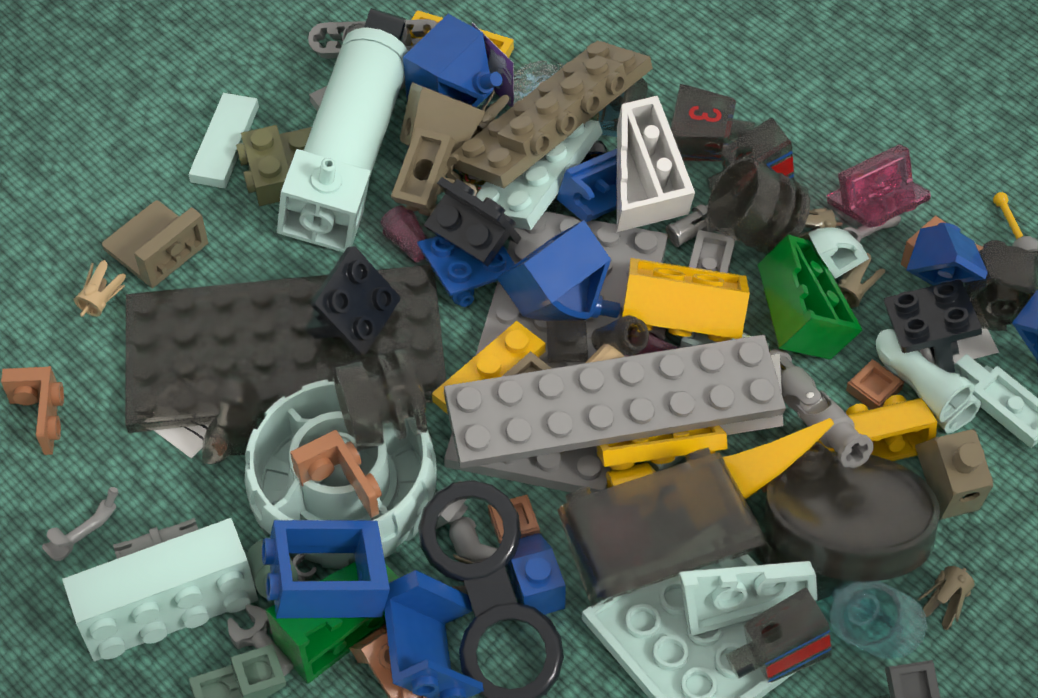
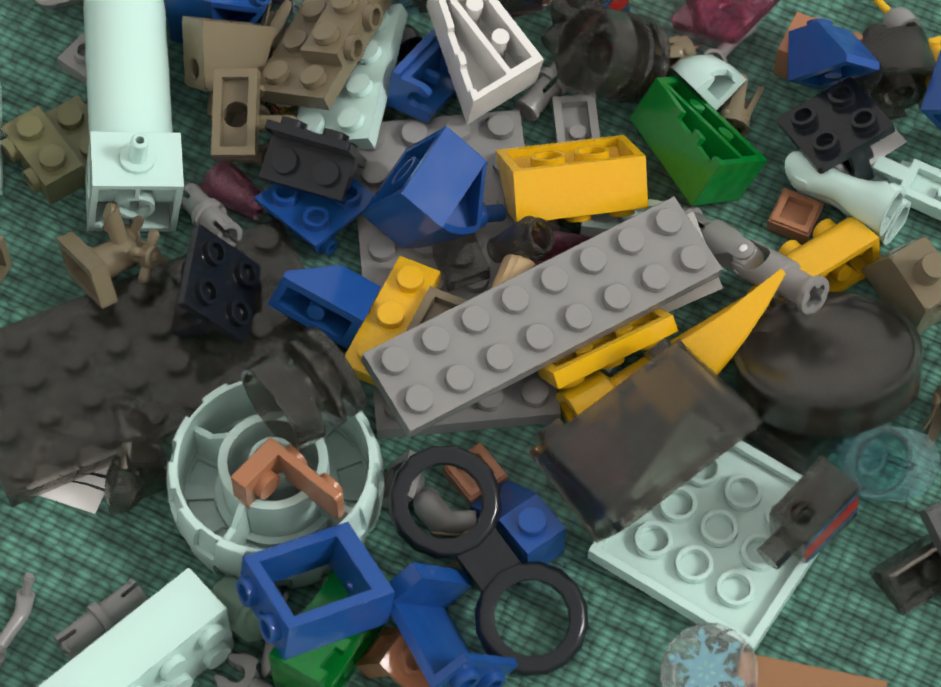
camera: 20 degrees left, 5 degrees up
(294, 255) = (96, 265): none -> dark tan piece
(376, 246) = (209, 213): none -> light grey pin
(439, 337) = (327, 299): none -> blue slope
(740, 593) = (750, 481): light aqua wing -> none

